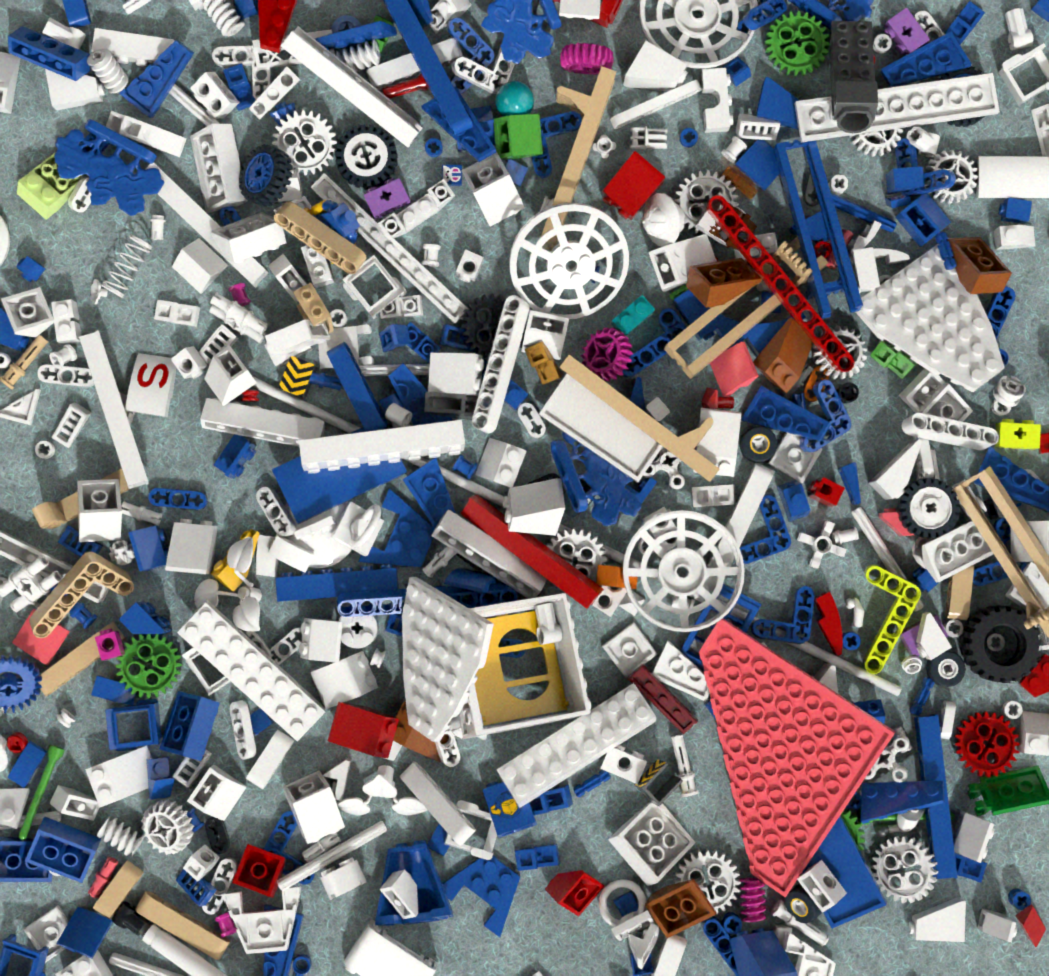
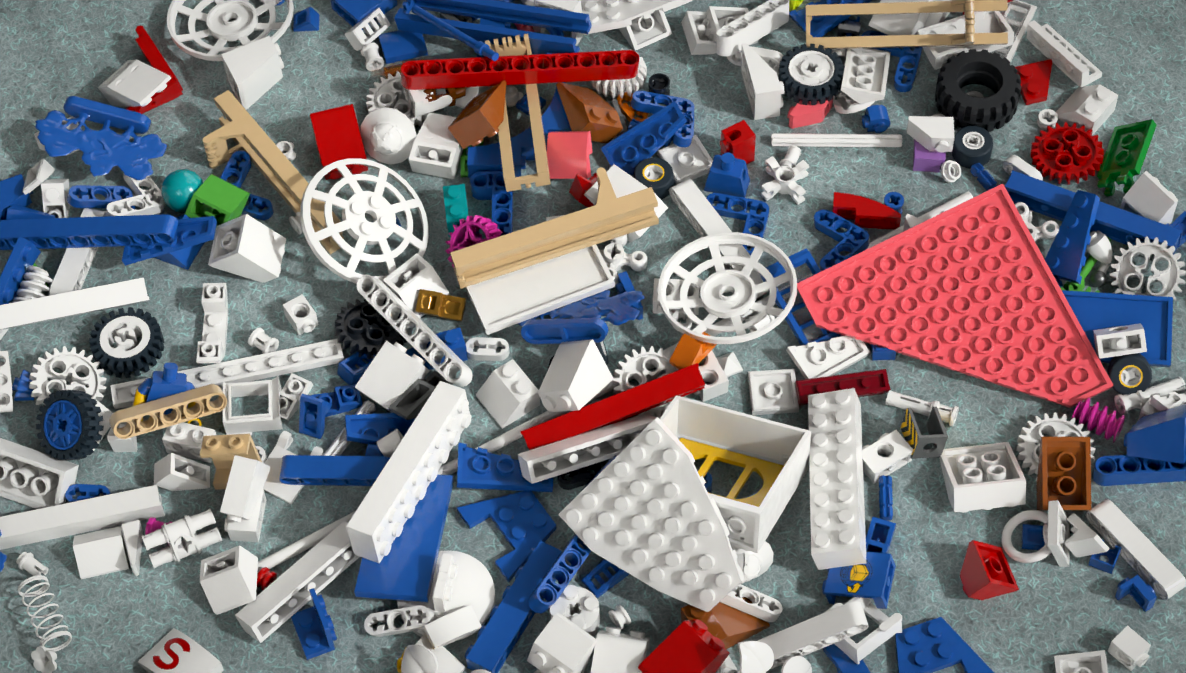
camera: 50 degrees left, 30 degrees down
(177, 313) = (125, 604): white slope -> none
(181, 362) = (177, 610): white brick -> none
(216, 284) = (132, 535): none -> white slope
(216, 335) = (185, 566): white slope -> none
(248, 237) = (115, 477): white slope -> none
(297, 377) = (283, 521): piece -> none
(325, 381) = (303, 505): blue pin -> none
(358, 527) = (475, 552): white tile -> none
(381, 207) = (180, 345): medium lavender brick -> none
(406, 87) = (100, 259): red pin -> none
(439, 145) = (168, 279): blue bush -> none
(440, 560) = (560, 485): white pin -> none
(452, 174) = (197, 284): tile -> none
(465, 466) = (487, 428): blue bush -> none
(537, 857) = (930, 590): blue slope -> none
(548, 630) = (701, 440): white piece -> none
(586, 58) = (195, 115): dark pink gear -> none
(652, 138) = (309, 105): white arm -> none
(655, 104) = (281, 92): white beam -> none
(693, 141) = (332, 79): blue bush -> none
(713, 495) = (676, 238): white slope -> none
(715, 83) = (304, 37): white arch -> none
(737, 925) = (1108, 445): blue bush -> none
(775, 243) = (479, 47): none -> blue bar
(850, 480) = (732, 118): blue slope -> none
(858, 611) = (868, 185): white arm -> none
(892, 617) = (893, 158): neon yellow beam -> none
(893, 359) = (655, 39): bright green slope -> none
(959, 595) = (907, 99): tan beam -> none

